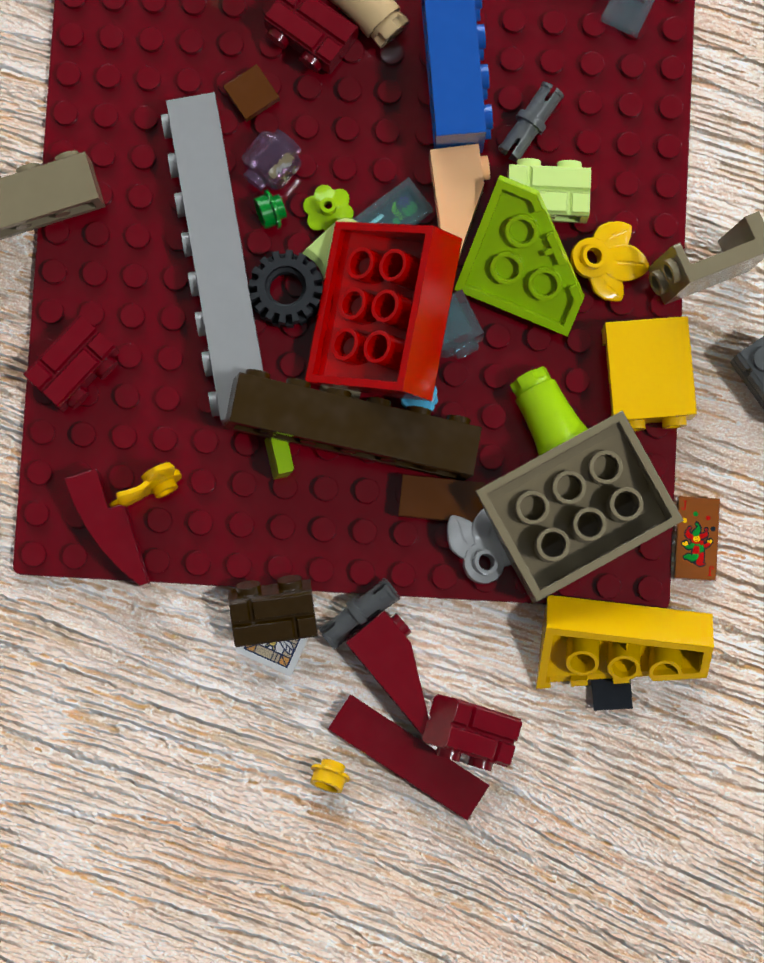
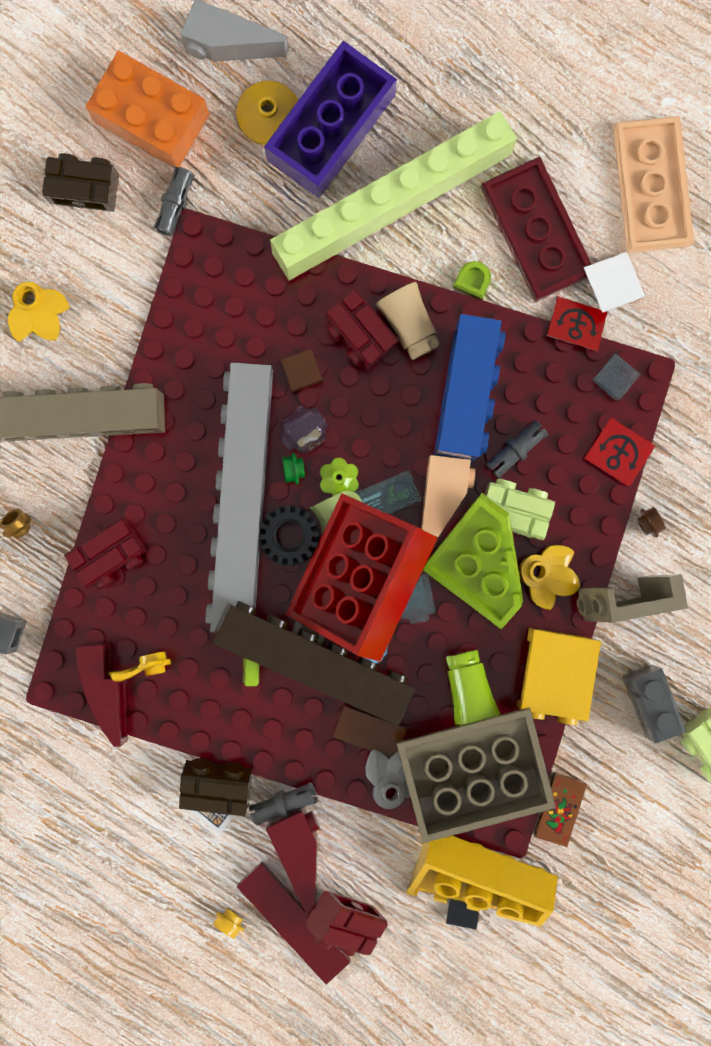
camera: 15 degrees right, 5 degrees up
(655, 96) = (620, 452): none -> red sticker
(715, 170) = (651, 522): none -> reddish brown plate

